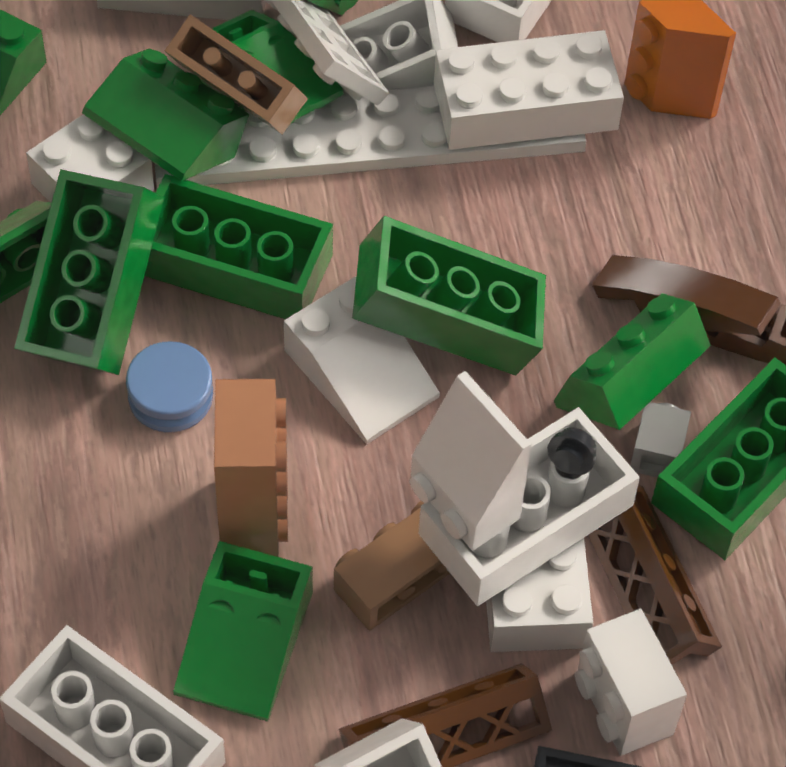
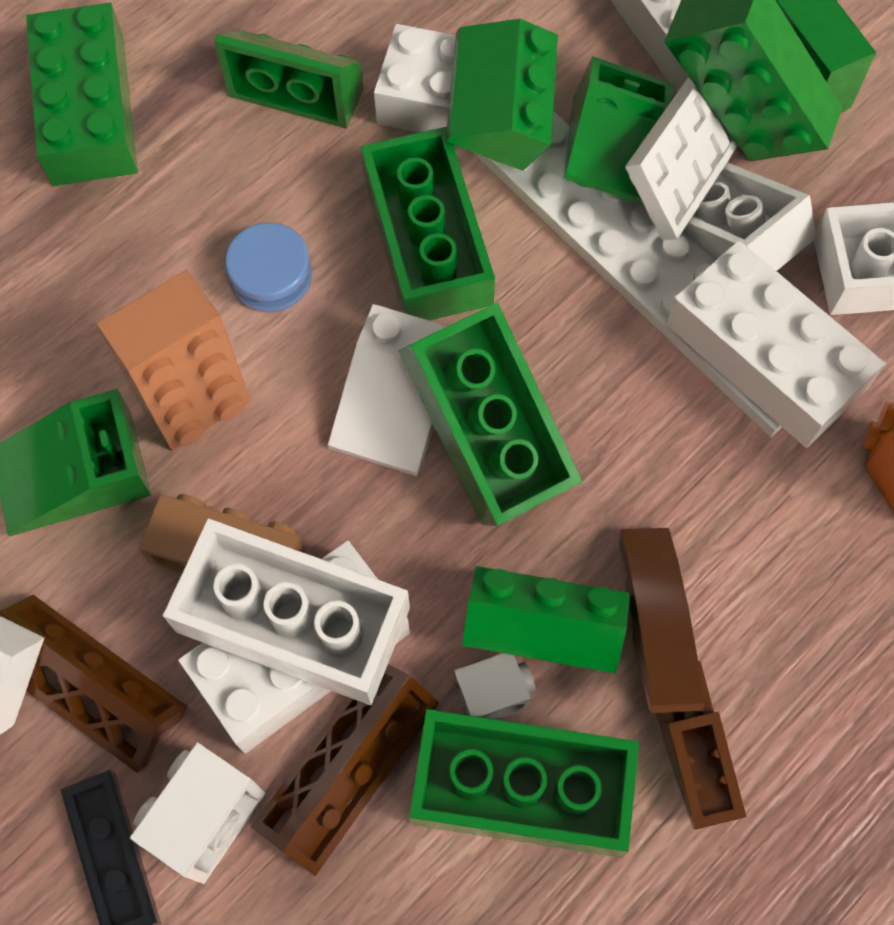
camera: 60 degrees right, 10 degrees up
(89, 271) = (304, 134): green brick -> none
(236, 74) = (563, 103): medium nougat brick -> none
(471, 465) = (234, 533): white slope -> none
(572, 451) = (338, 613): black plate -> none

